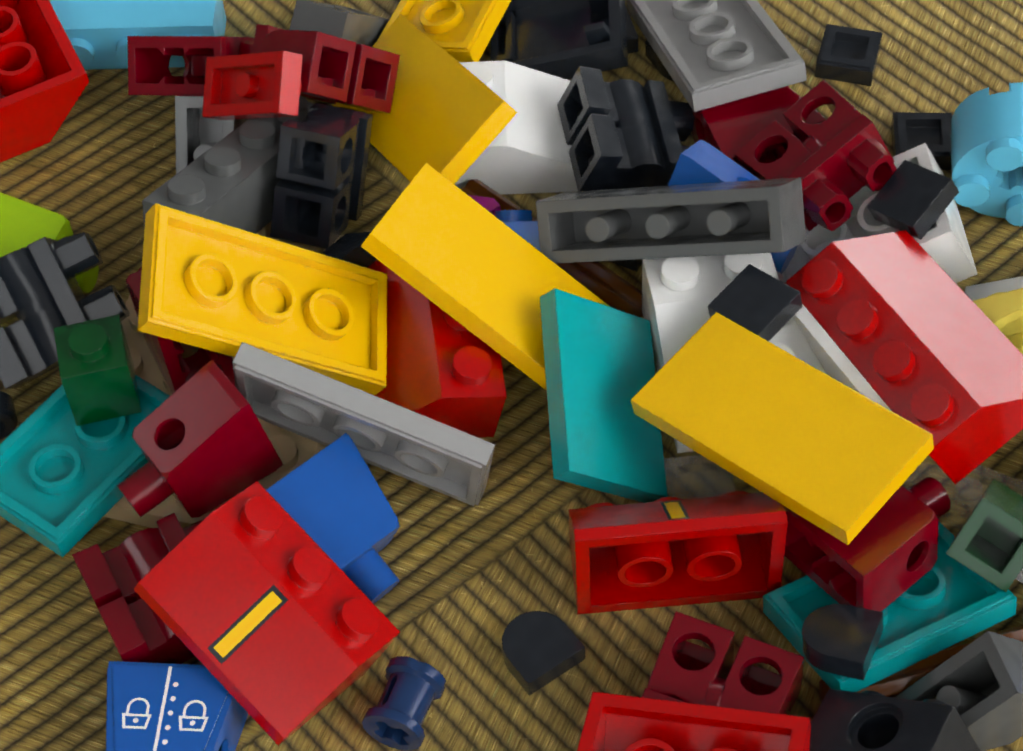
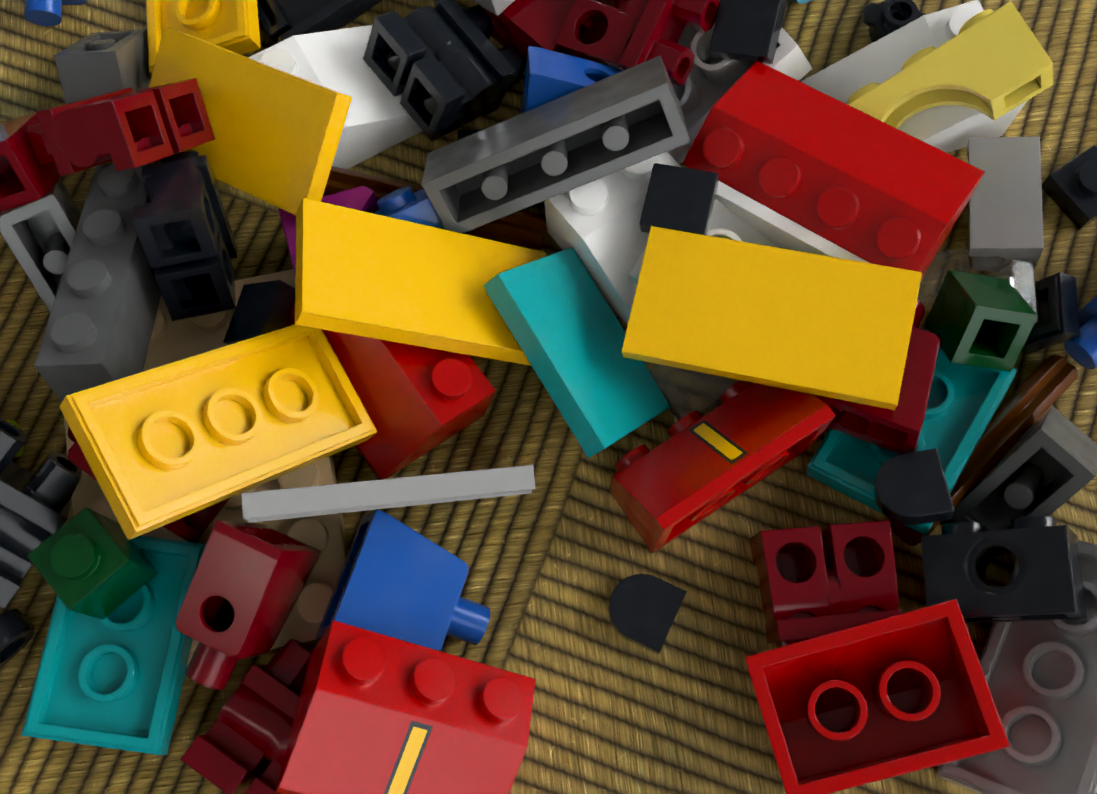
camera: 30 degrees left, 20 degrees up
(252, 86) = (73, 183): red plate -> none
(404, 703) = (565, 730): dark blue bush -> none

